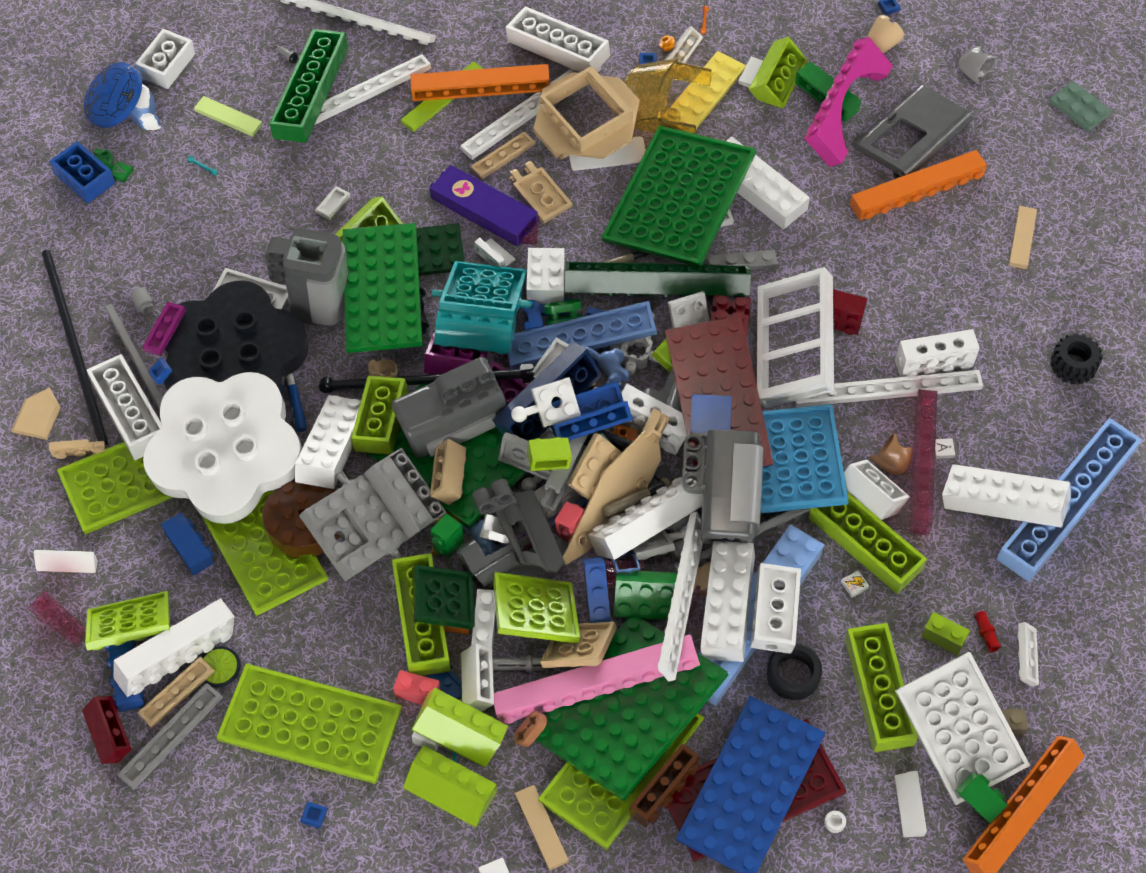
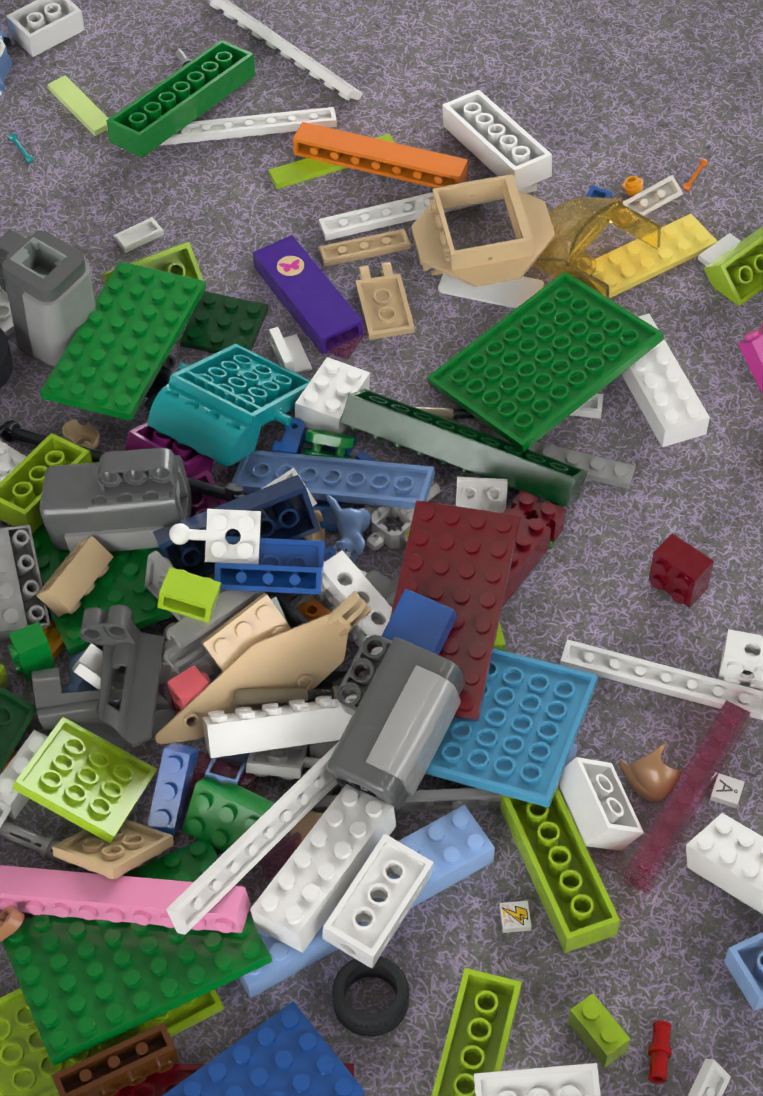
camera: 25 degrees right, 5 degrees down
(808, 386) = (596, 642): white window -> none

